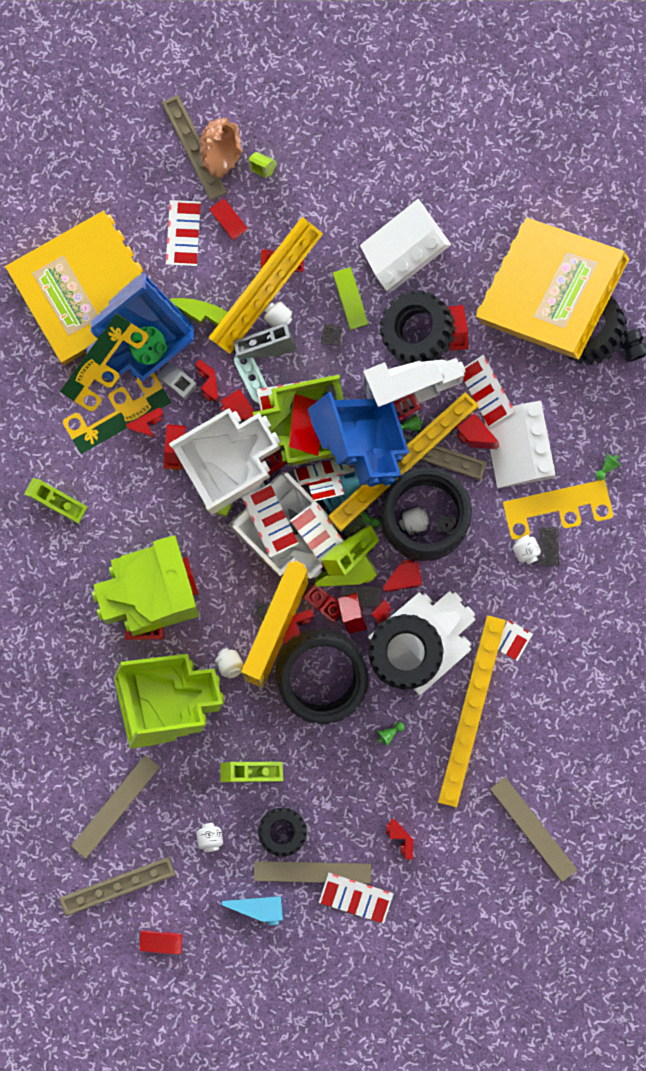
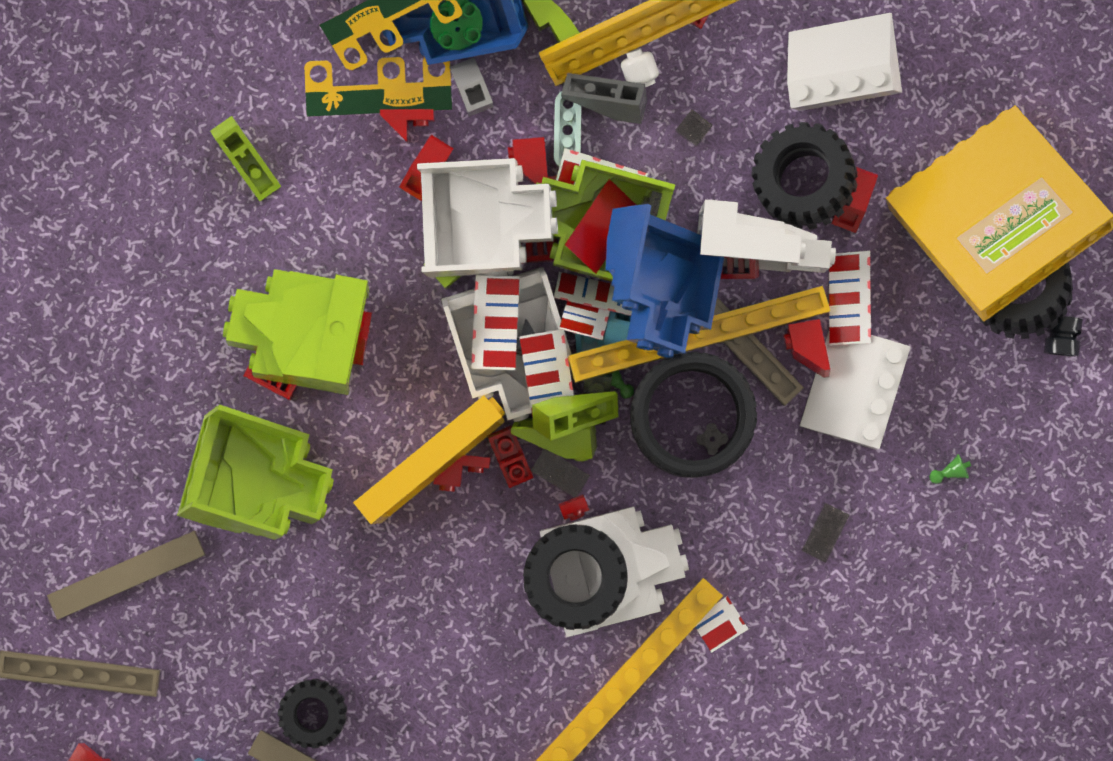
camera: 25 degrees right, 5 degrees up
(209, 837) = (220, 674): white head -> none
(210, 386) = (509, 115): red slope -> none
(229, 663) = (354, 471): white head -> none
(251, 772) = (312, 619): lime slope -> none
(260, 610) = (428, 426): clear smoke plate -> none
(333, 711) = (449, 599): black tyre -> none
(350, 298) = (741, 93): lime slope -> none
(352, 613) = (537, 489): slope -> none
(388, 734) = (503, 660): bright green piece -> none
(404, 577) = (626, 477): red slope -> none
(412, 424) = (735, 291): bright green piece -> none
(414, 521) = (675, 414): white head -> none
(526, 549) = (795, 522): white head -> none
(559, 500) = (872, 482): yellow piece -> none

